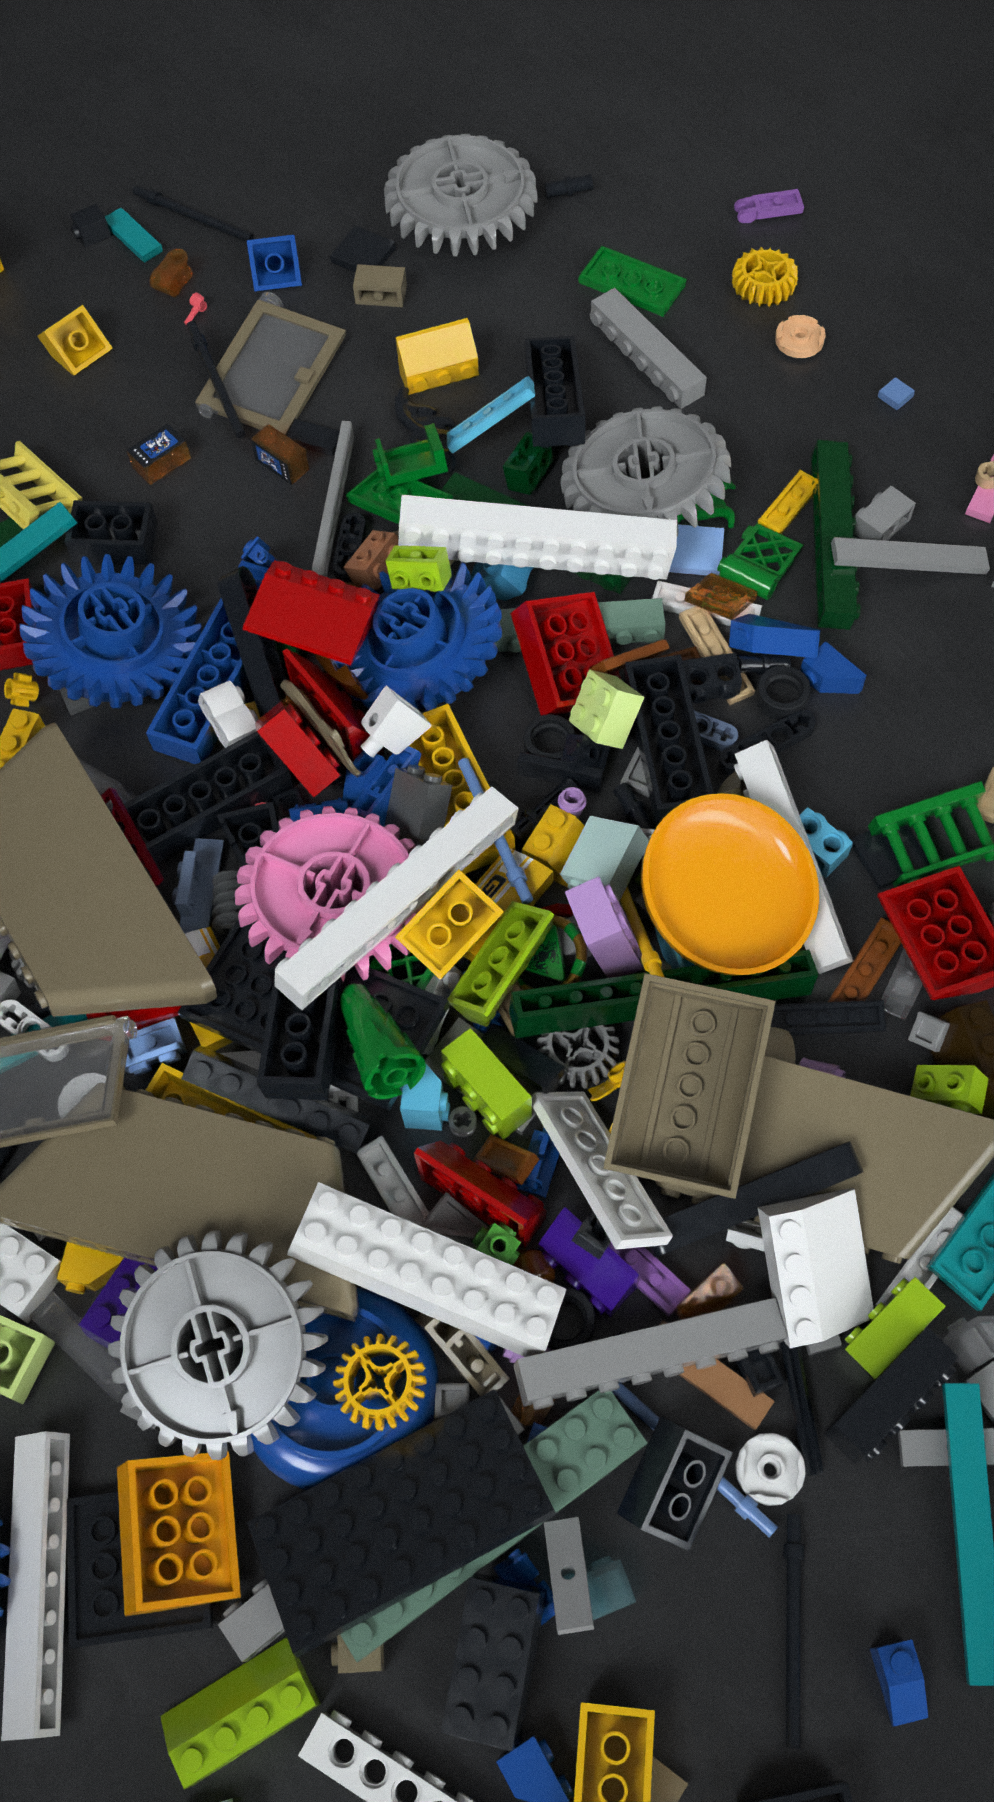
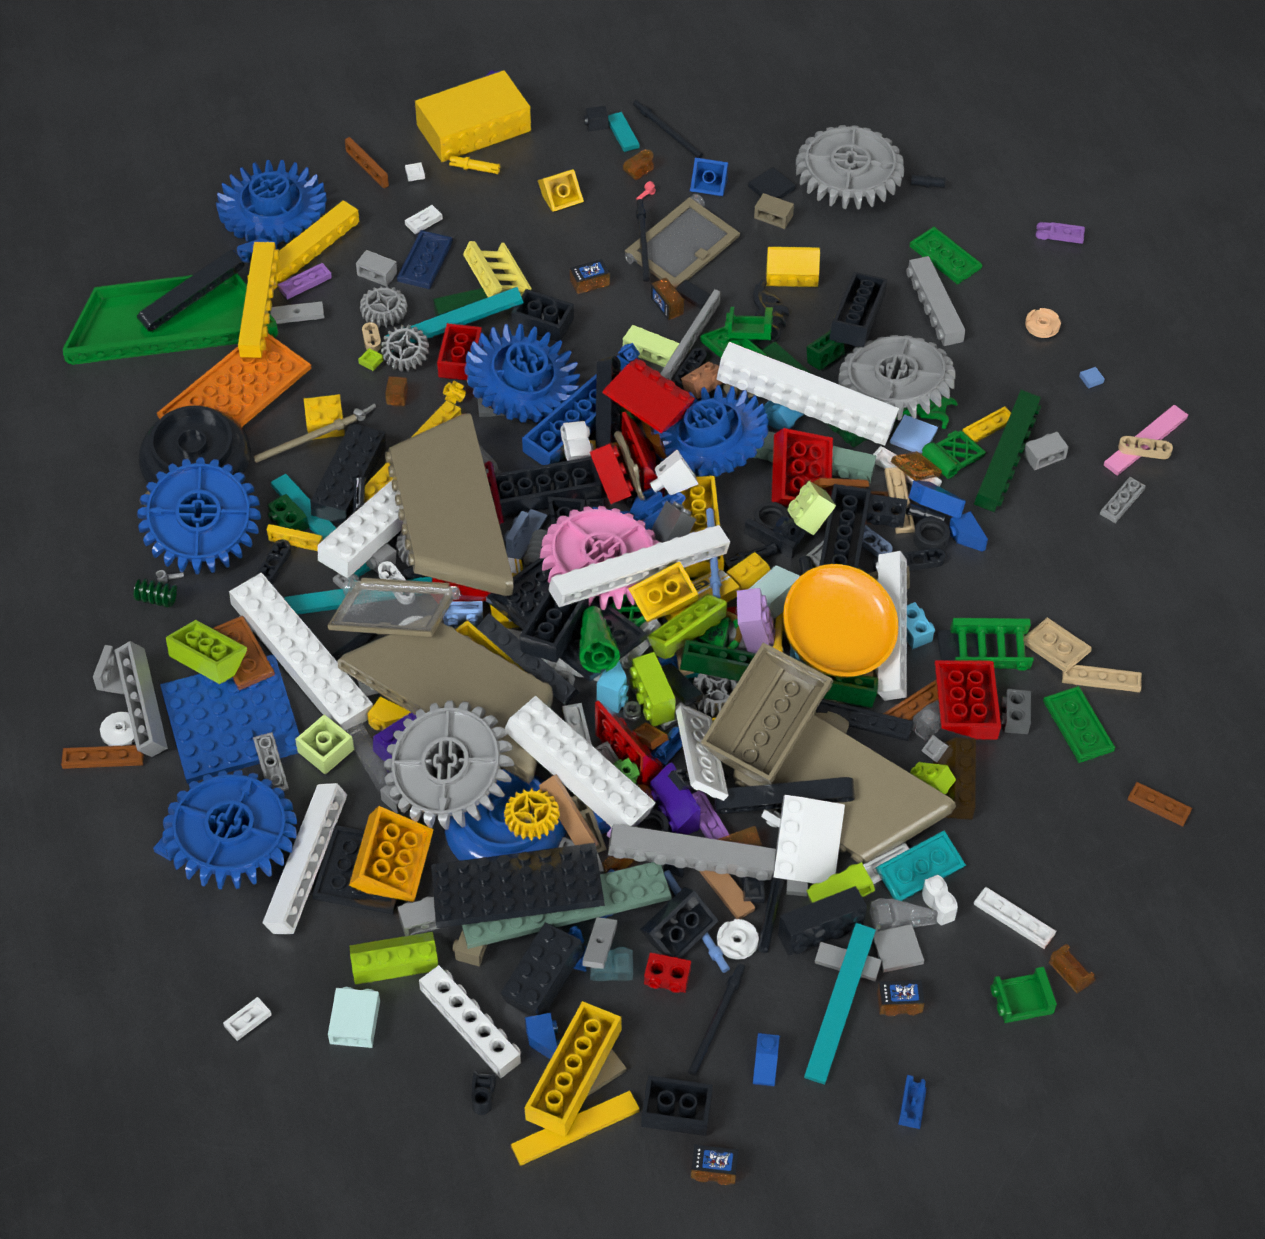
camera: 15 degrees right, 10 degrees down
(282, 530) = (650, 345): none -> yellowish green brick
(419, 567) = (725, 389): lime brick -> none
(435, 1352) = (569, 813): none -> medium nougat tile
(490, 414) = (810, 312): medium azure tile -> none
(572, 801) = (769, 555): lavender cone -> none
(686, 1566) = (668, 967): none -> red brick
(764, 276) = (1035, 277): yellow gear -> none
(909, 556) = (1050, 478): light grey tile -> none

